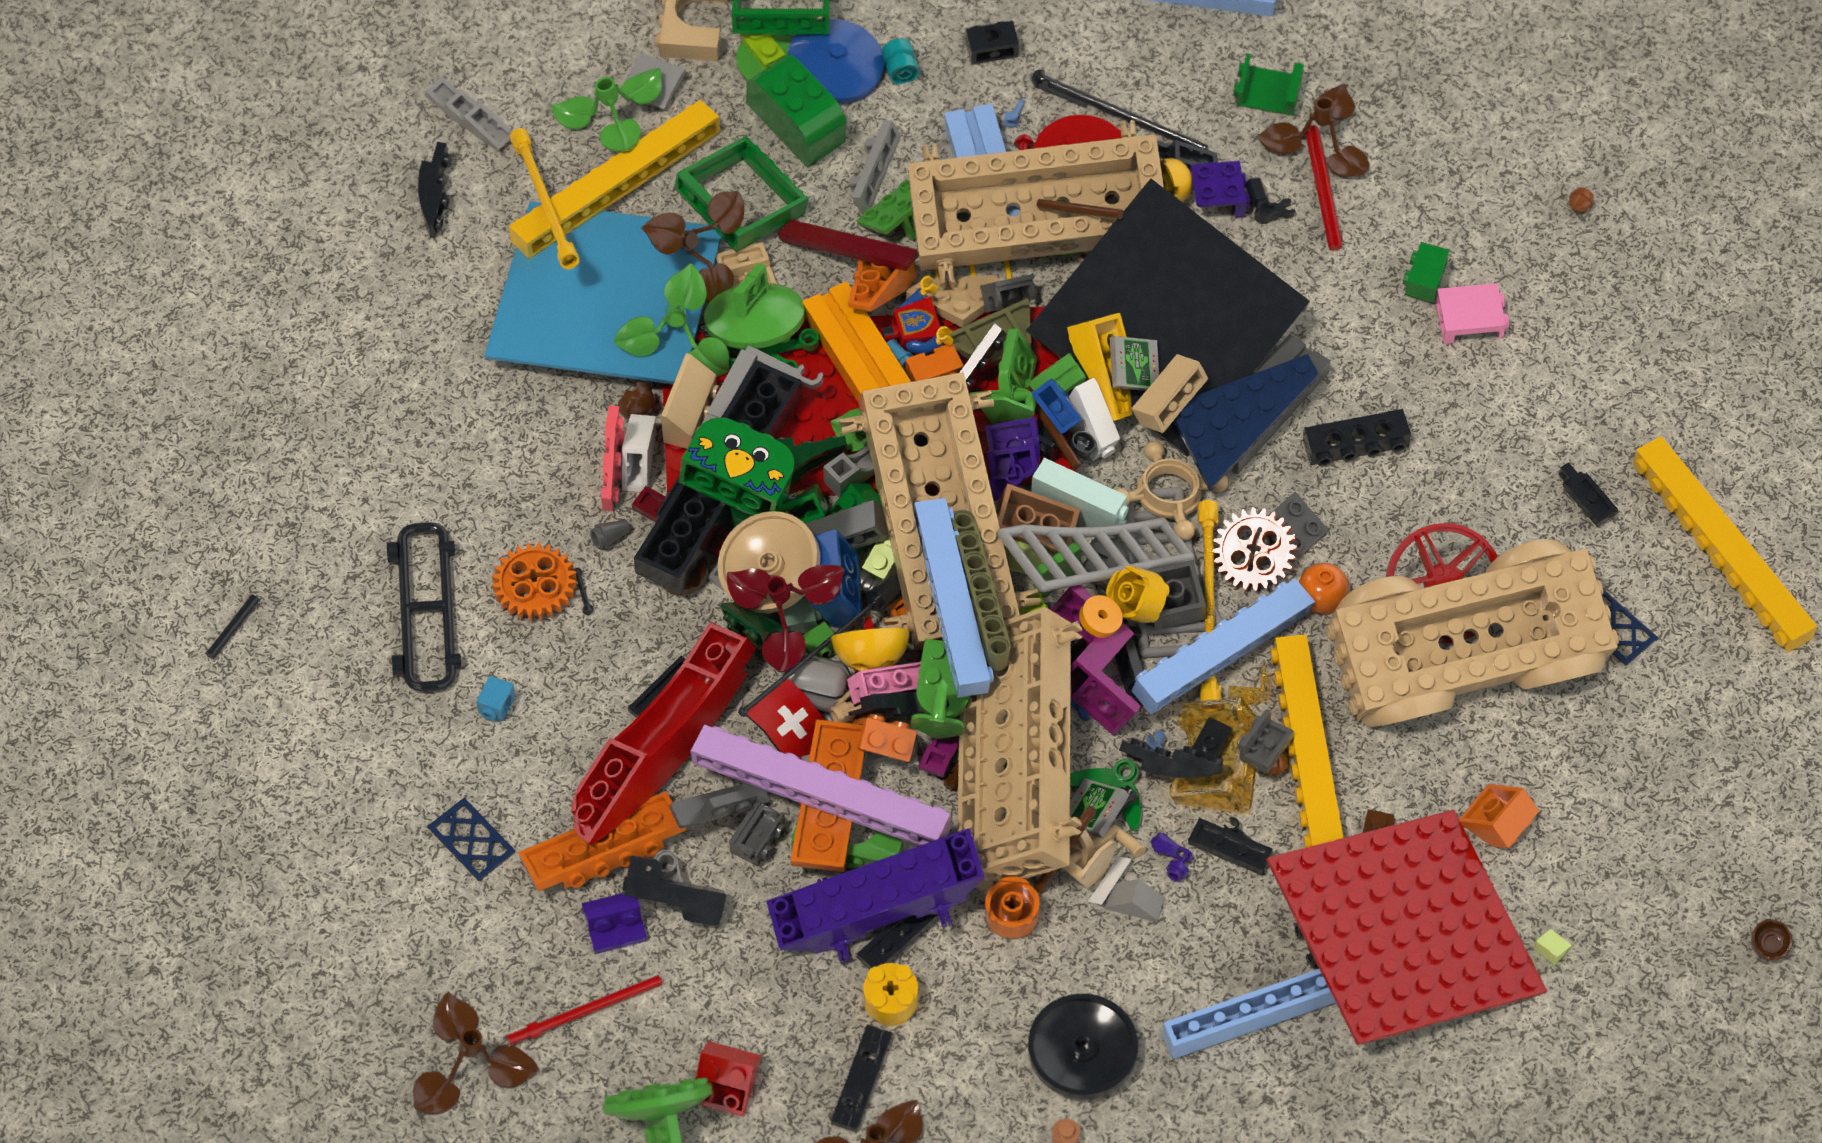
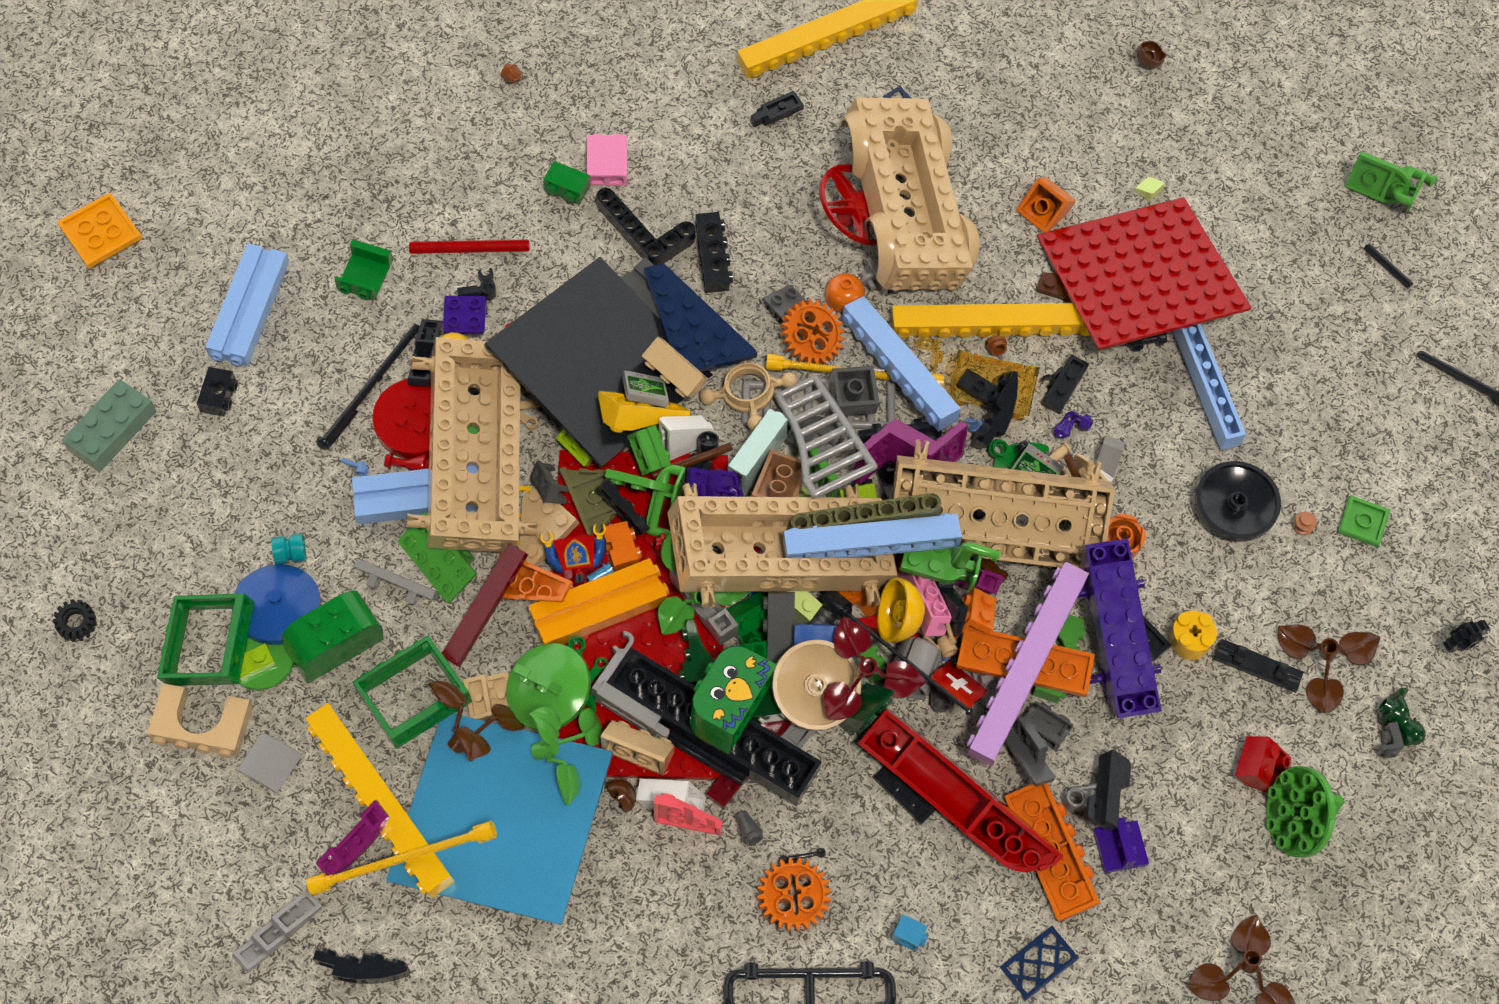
camera: 90 degrees left, 5 degrees up
(533, 1030) = (1219, 916): red bar -> none
(565, 166) = (356, 842): none -> magenta slope
(623, 135) = (336, 789): bright green plant -> none
(992, 42) = (281, 486): black brick -> none
(1056, 405) = (682, 449): blue slope -> none
(1080, 209) = (494, 407): reddish brown bar -> none
(1093, 623) = (889, 434): light orange piece -> none
(1138, 593) = (855, 405): yellow brick -> none
(1264, 742) = (991, 342): dark grey bracket -> none
(1330, 106) = (416, 269): reddish brown plant -> none
(1356, 372) = (641, 233): none -> black beam

